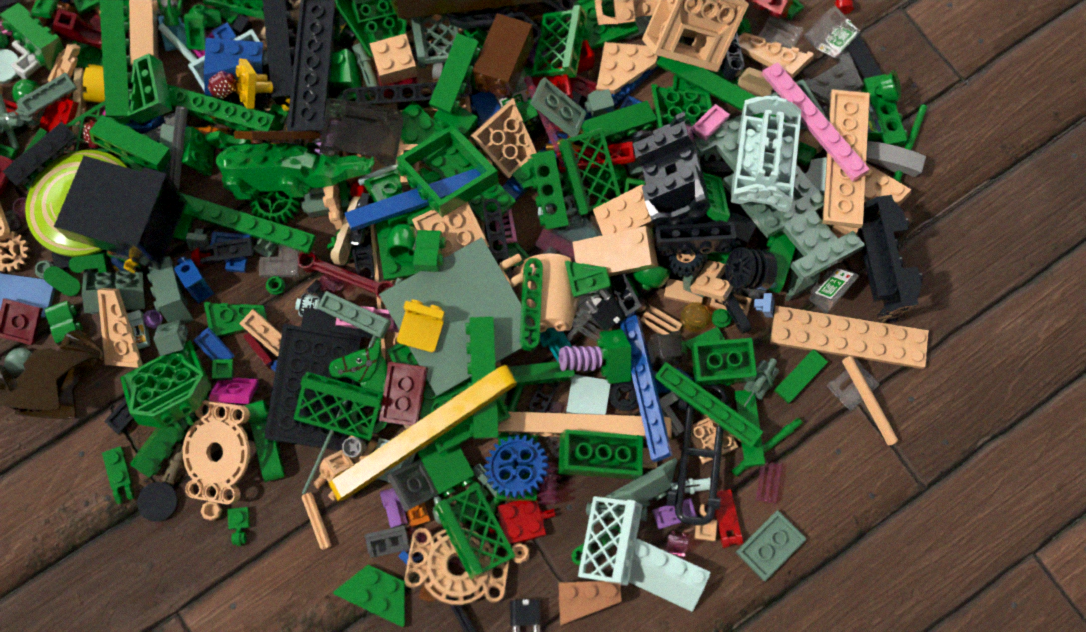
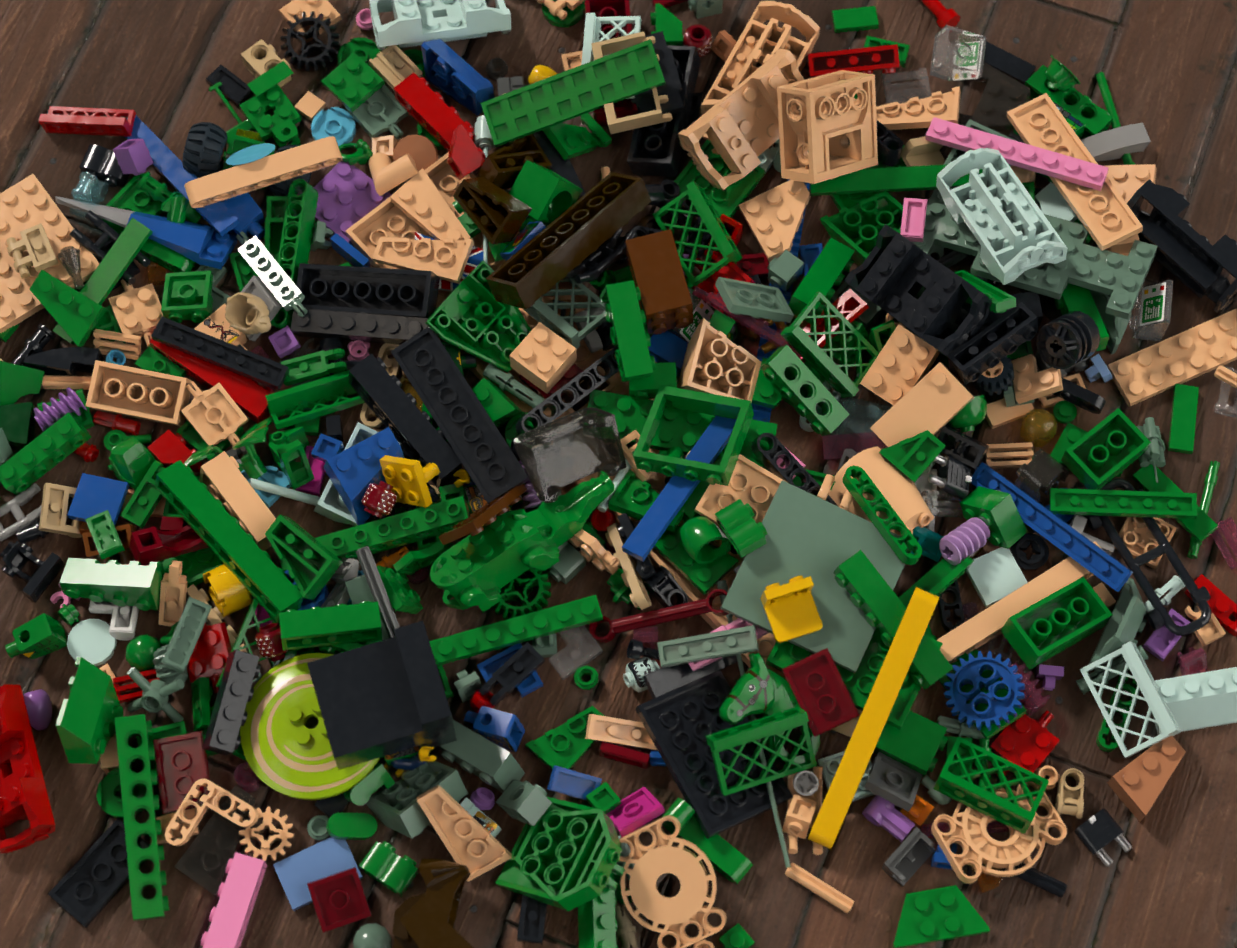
camera: 35 degrees left, 5 degrees down
(523, 576) = (1070, 799): none -> tan piece
(572, 486) = (1049, 675): none -> medium lavender tile

